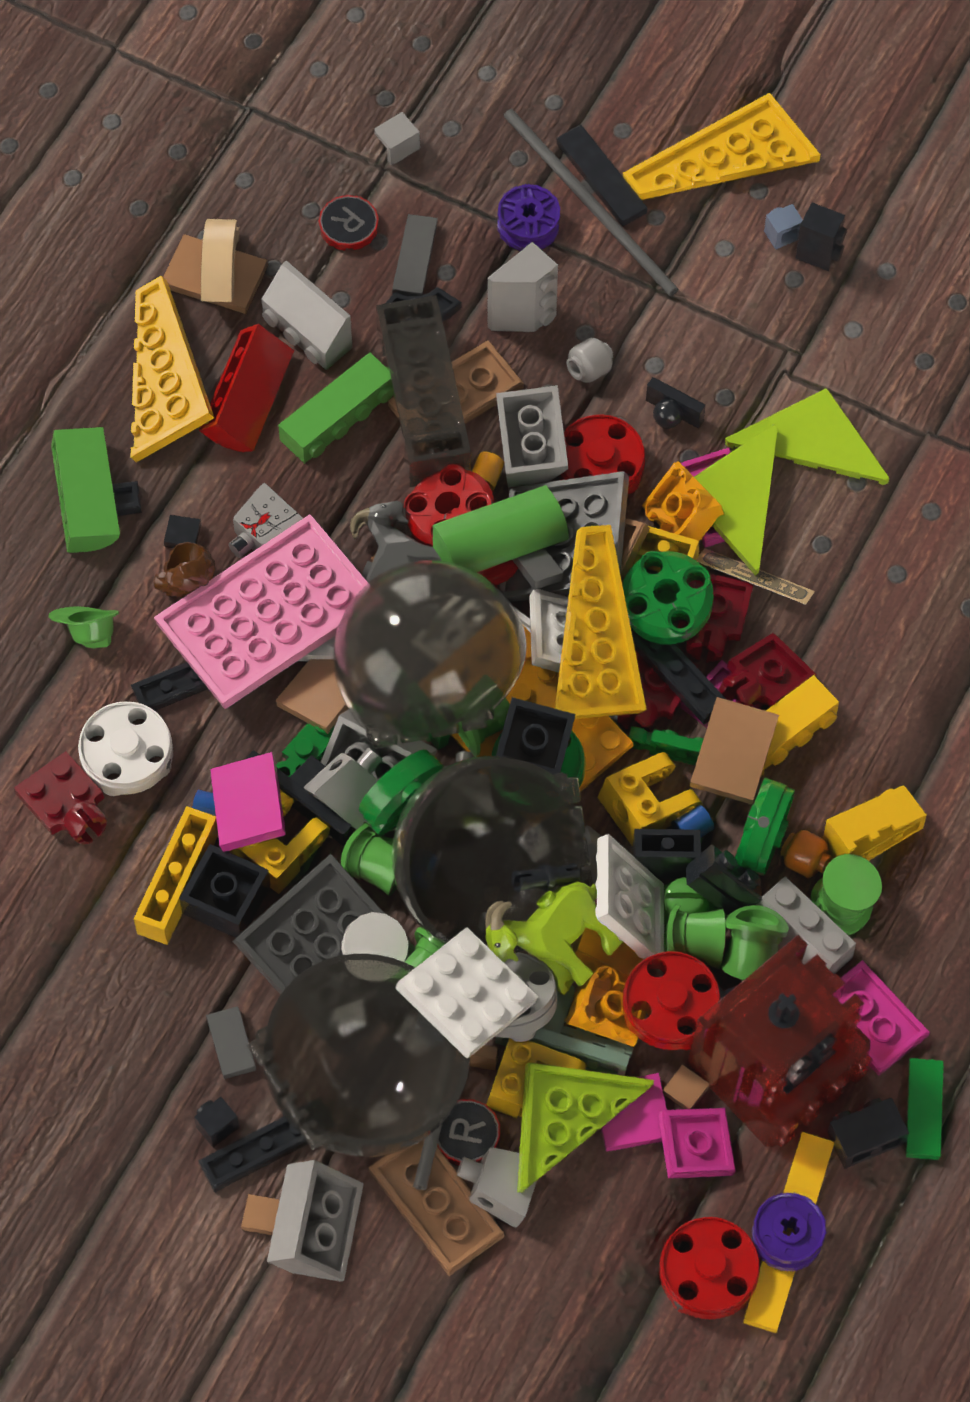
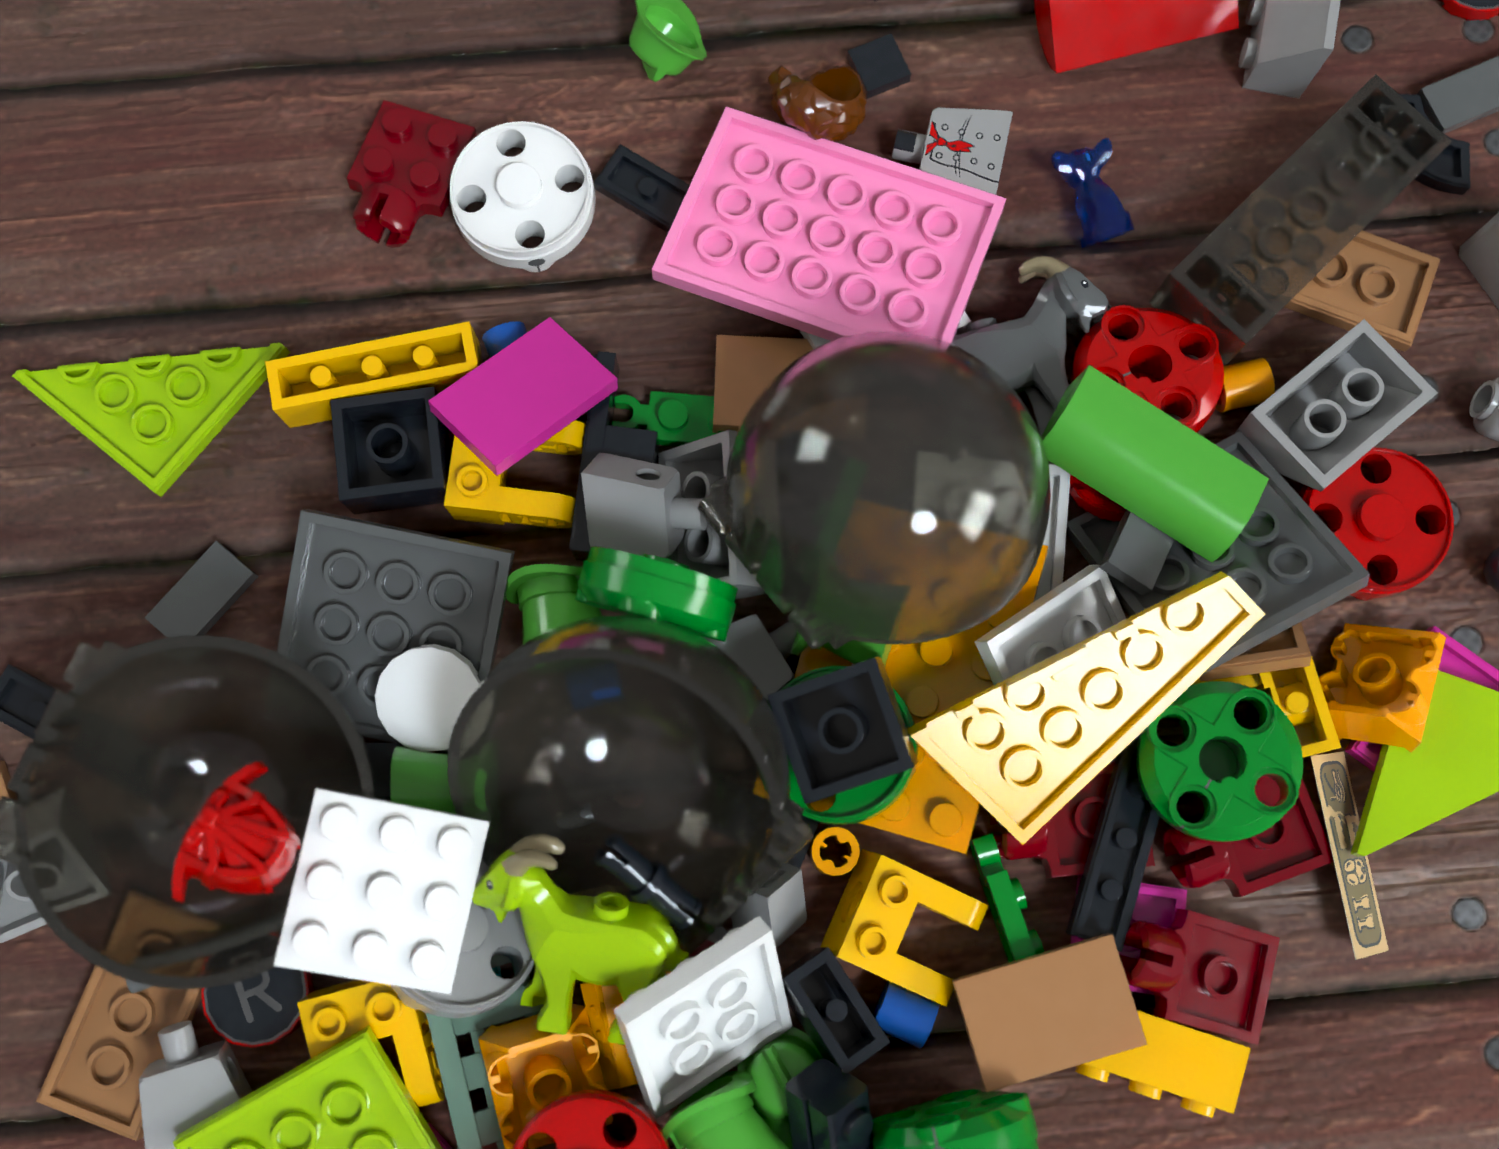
camera: 55 degrees right, 15 degrees up
(102, 1011) = (154, 409): none -> lime tile
(216, 1121) = (57, 645): black plate -> none
(336, 408) = (1193, 132): bright green brick -> none
(341, 476) = (1095, 201): none -> clear blue animal
(405, 1021) = (236, 840): none -> red piece
(592, 798) = (840, 836): none -> light orange gear

